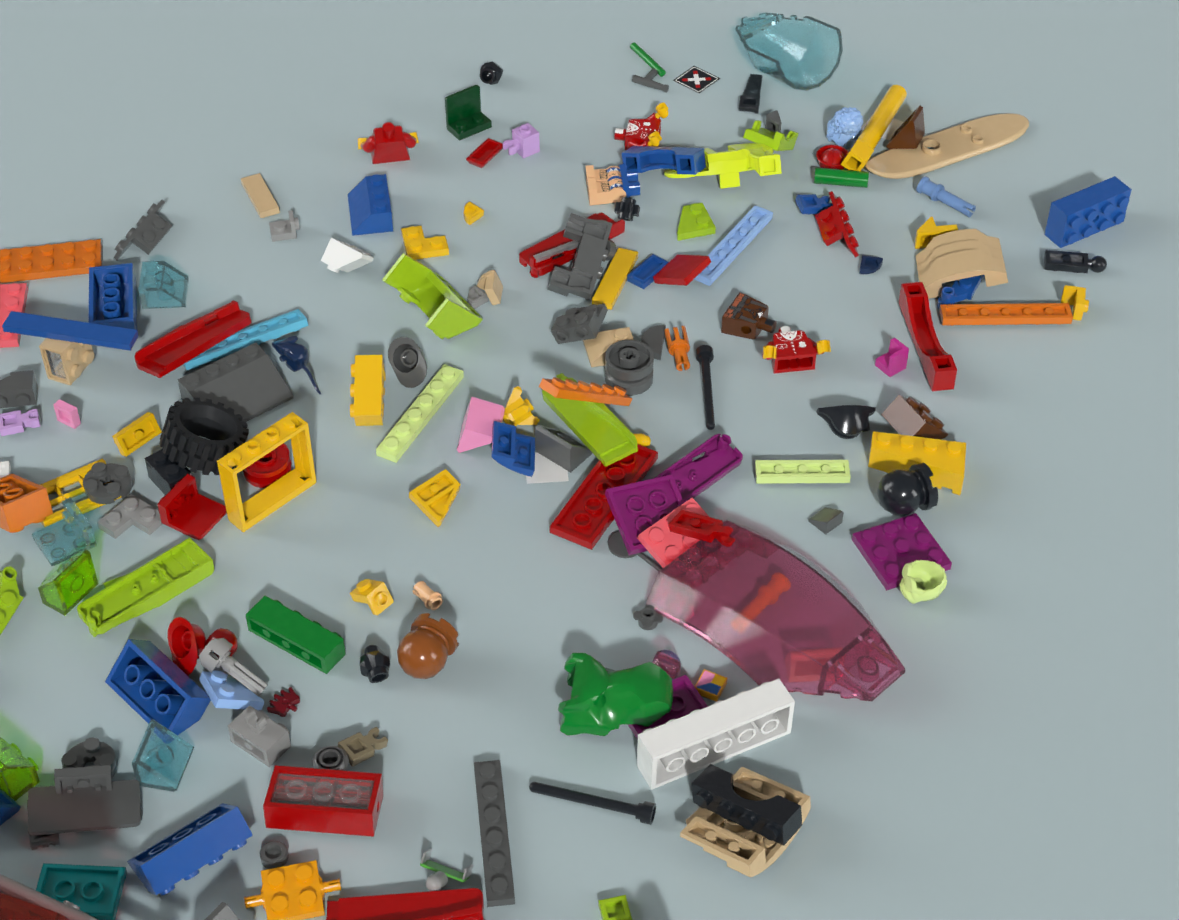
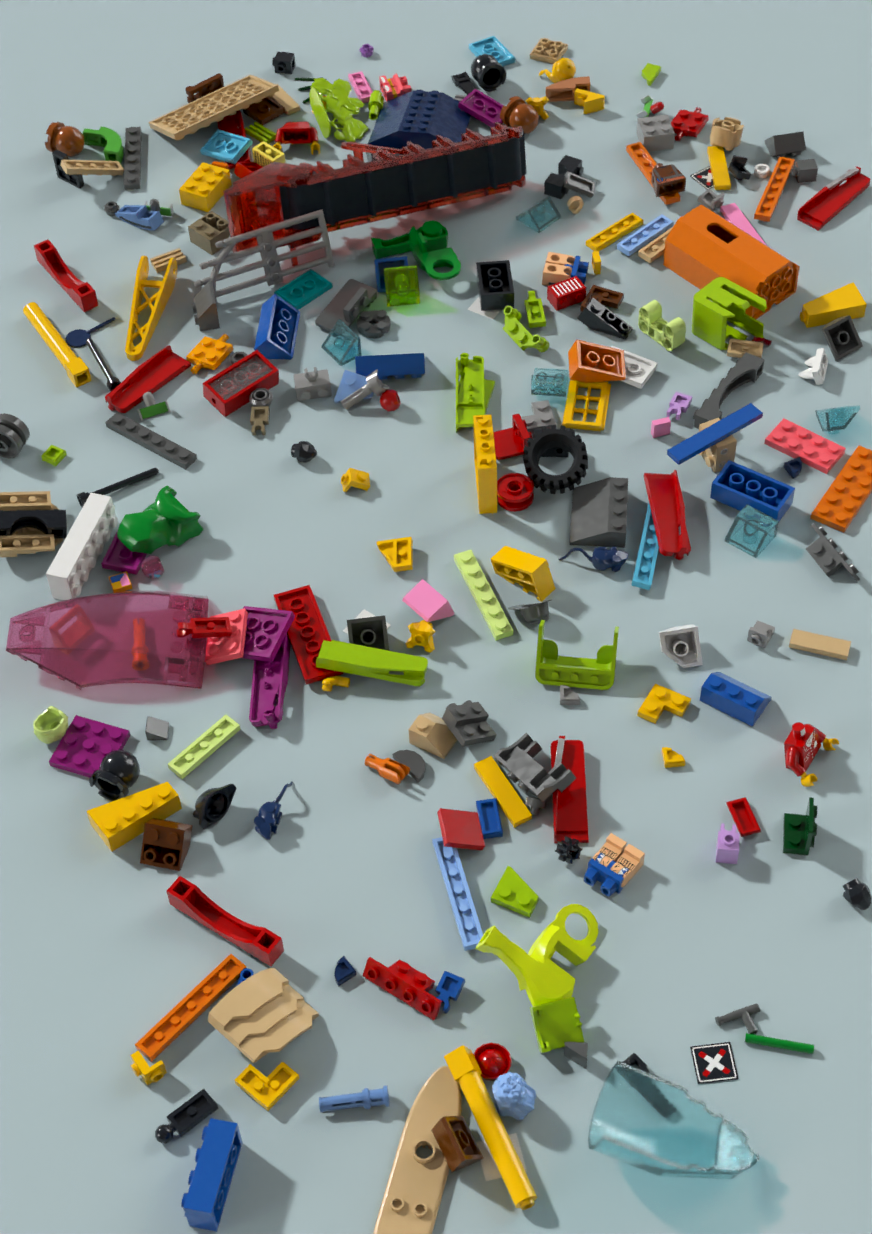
camera: 135 degrees right, 5 degrees up
(42, 308) = (793, 467): none -> dark blue tile
(69, 583) = (506, 362): clear neon green slope -> none
(102, 473) = (573, 406): dark grey plate -> none
(137, 434) = (607, 447): yellow tile -> none
(185, 643) = (407, 389): red piece -> none
(284, 703) = (327, 411): dark red piece -> none
(296, 634) = (363, 433): green brick -> none
(427, 647) = (283, 471): dark orange tile -> none
(431, 599) = (326, 503): light nougat pin -> none
(492, 285) = (564, 705): tan tile -> none
(513, 449) = (391, 602): blue slope -> none
(585, 392) = (375, 648): orange plate -> none
(629, 366) = (393, 718): dark grey wheel -> none
(643, 131) = (654, 935): red torso -> none
(648, 617) = (195, 587): dark grey plate -> none
(681, 159) = (572, 913): blue arch -> none
(704, 356) = (362, 777): black piece -> none
(747, 318) = (369, 831): reddish brown torso -> none
(793, 351) = (308, 828): red torso -> none
(807, 381) = (269, 816): none -> dark blue animal
(841, 177) = (465, 1037): green piece -> none
(894, 360) = (233, 887): dark pink panel -> none
(930, 230) = (321, 1038): yellow slope -> none
(1007, 240) = (268, 1089): none -> yellow plate

